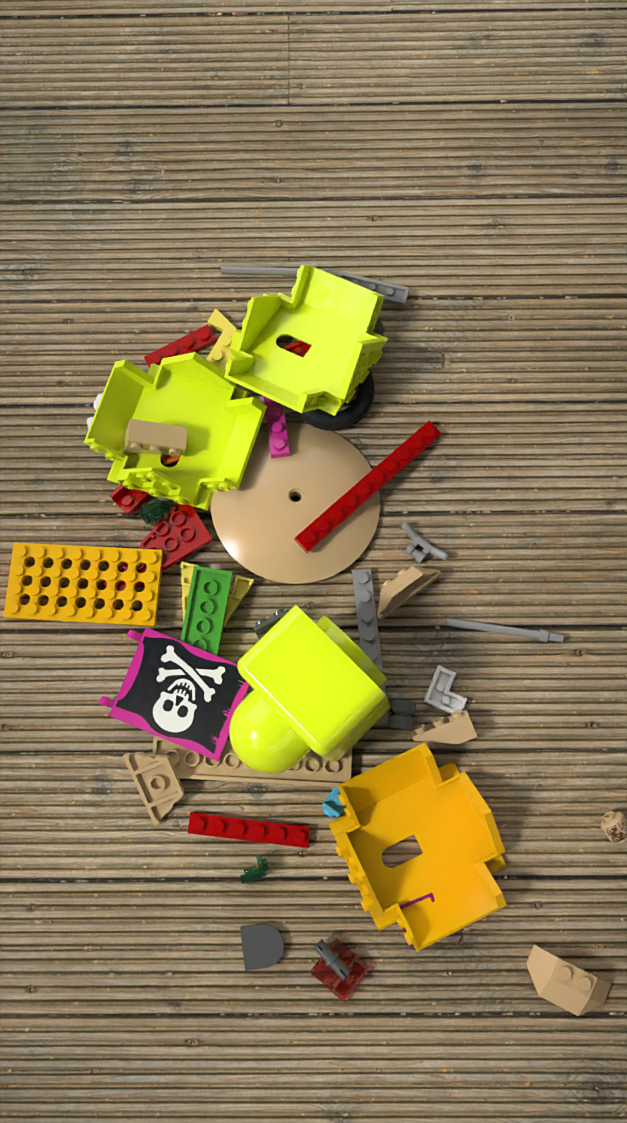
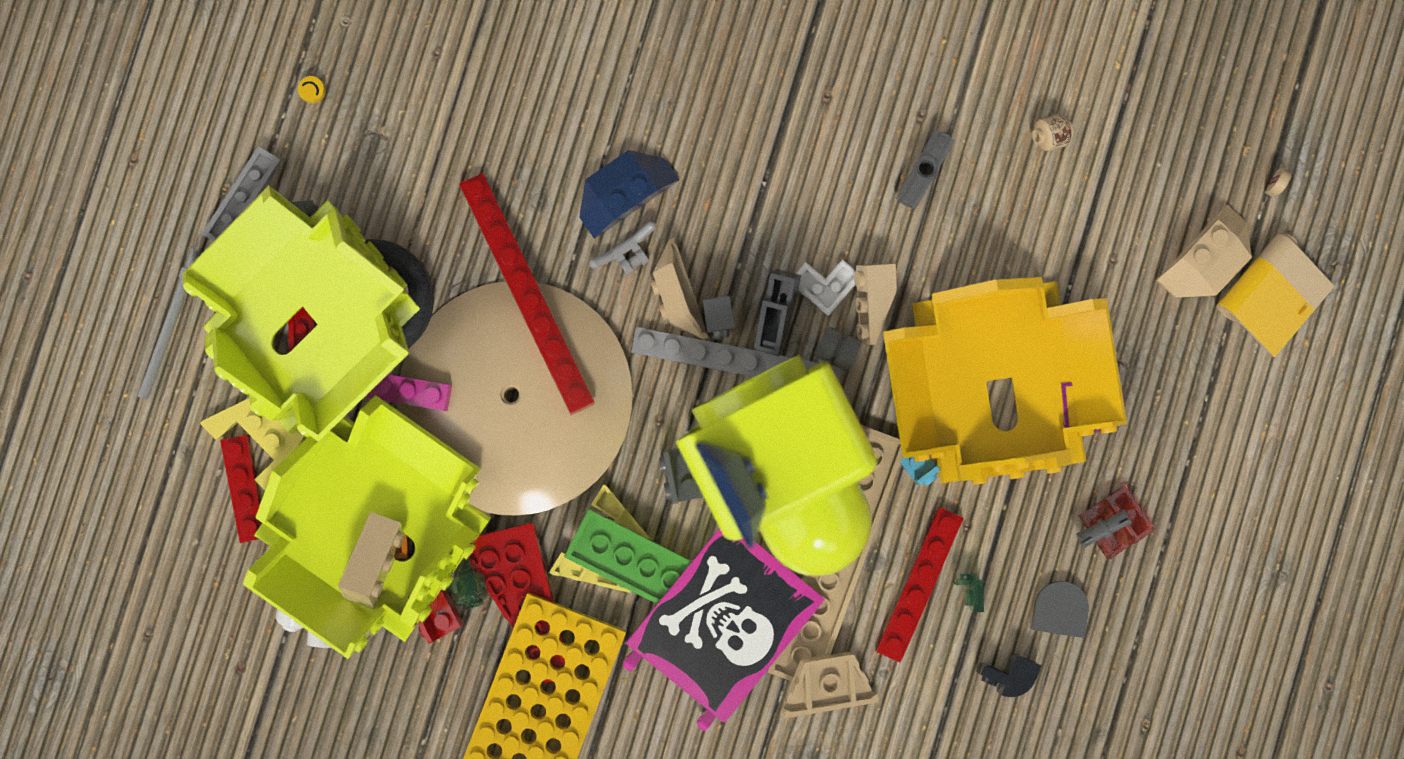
camera: 80 degrees left, 10 degrees up
(199, 926) = (1015, 680): none -> black brick
(274, 654) = (736, 486): none -> wedge
(396, 621) = (718, 317): none -> dark grey brick
(414, 663) = (777, 311): none -> black slope
(458, 309) = (311, 89): none -> yellow tile
(464, 530) = (623, 189): none -> dark blue wedge
(542, 635) = (791, 137): light grey bar -> none
(556, 1046) = (1276, 294): none -> yellow door
(566, 741) = (933, 156): none -> dark grey piece

